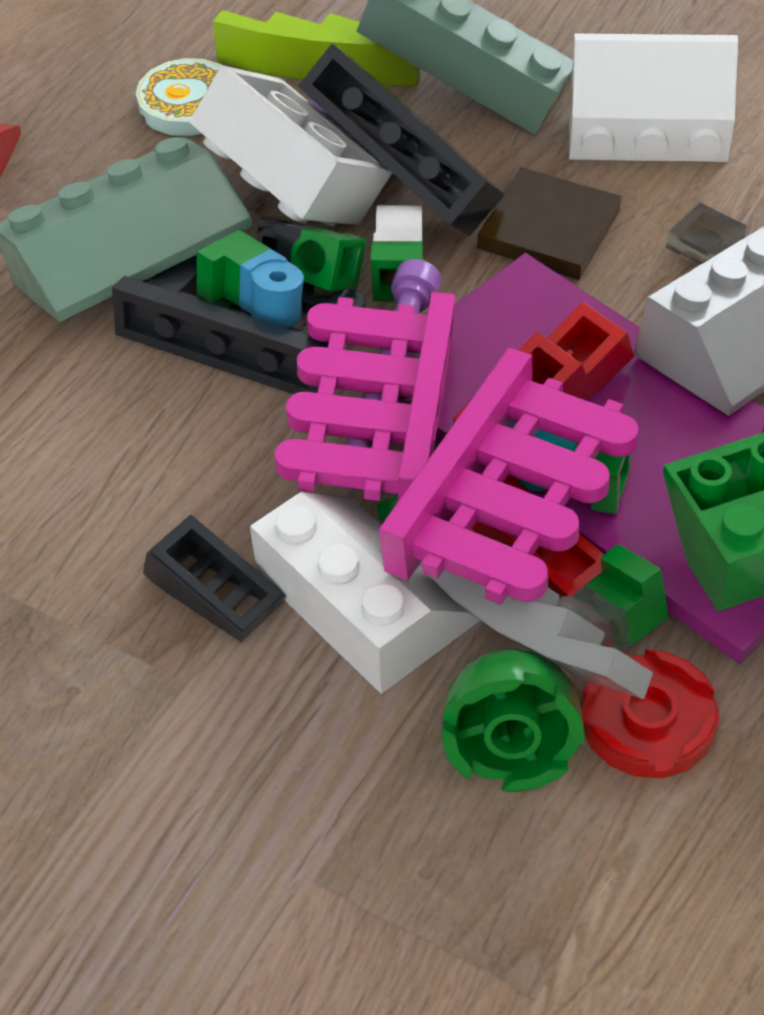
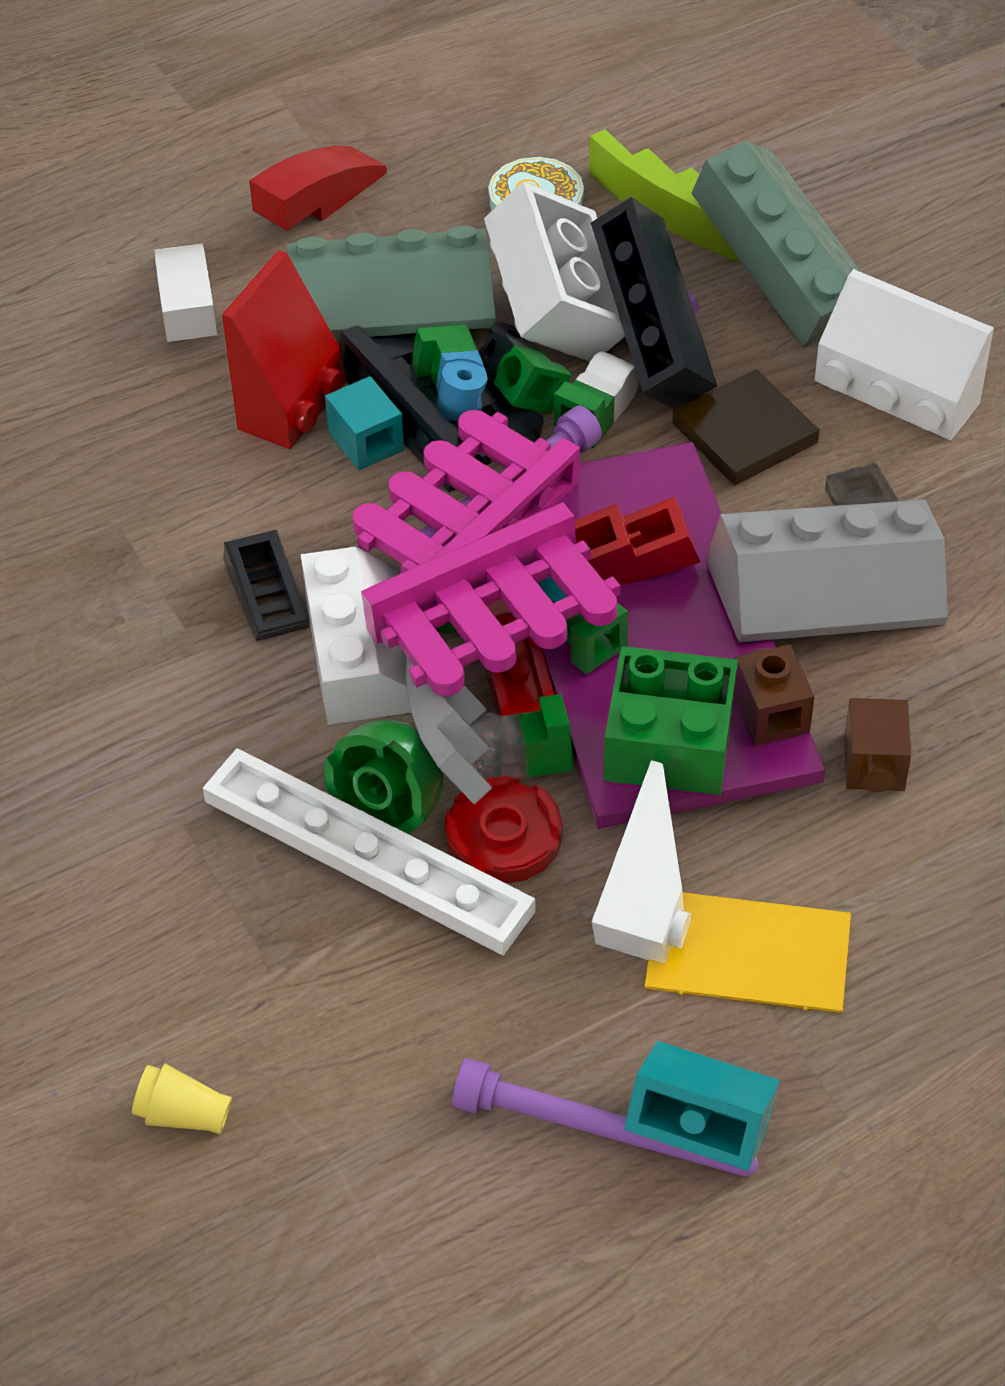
camera: 30 degrees right, 0 degrees up
(76, 338) = (279, 355): none -> red slope
(193, 369) = (364, 423): none -> teal brick
(541, 806) = (370, 851): none -> white plate

